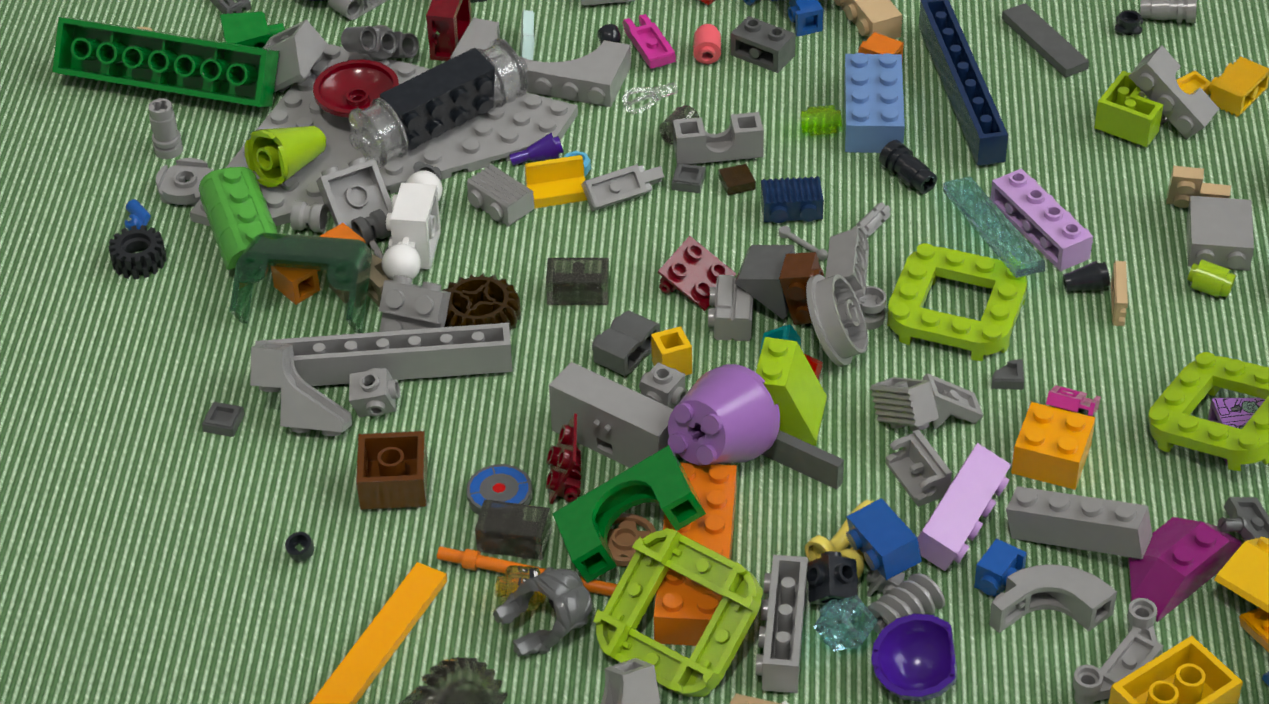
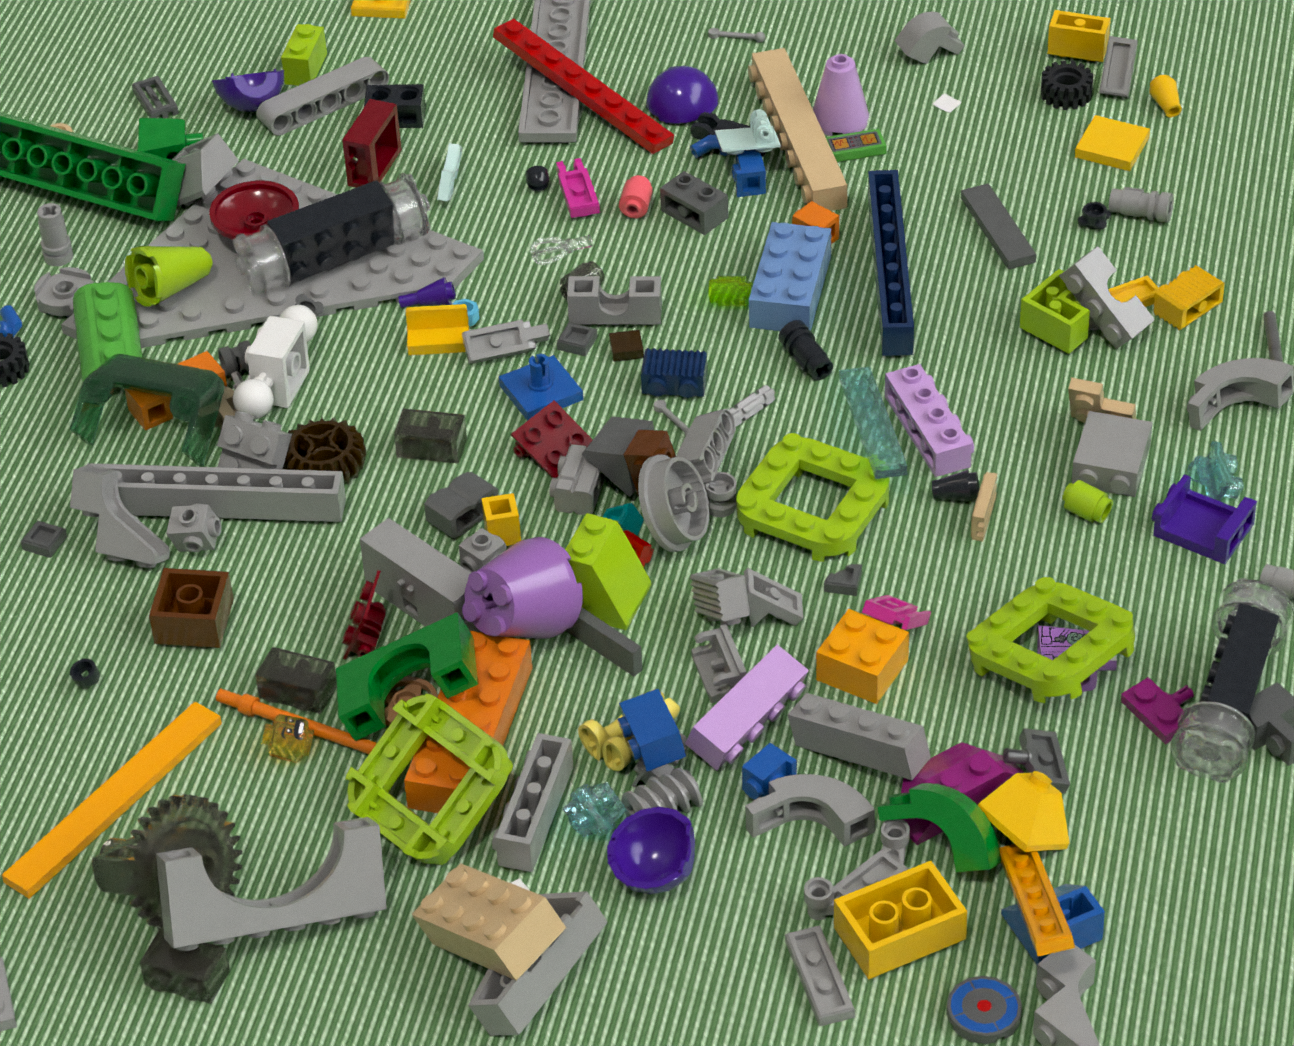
camera: 10 degrees right, 0 degrees up
(308, 216) = (177, 340): light grey wheel -> none
(354, 191) = (226, 318): light grey plate -> none
(379, 42) = (306, 166): flat silver piece -> none
(499, 195) = (376, 338): light grey brick -> none
(499, 483) = (297, 634): tile -> none
(565, 595) = (326, 759): dark grey hair -> none
(586, 79) = (499, 223): light grey arch -> none
(667, 225) = (539, 384): none -> blue tile
(831, 578) = (593, 762): black brick -> none
(1199, 587) = (959, 817): none -> green arch

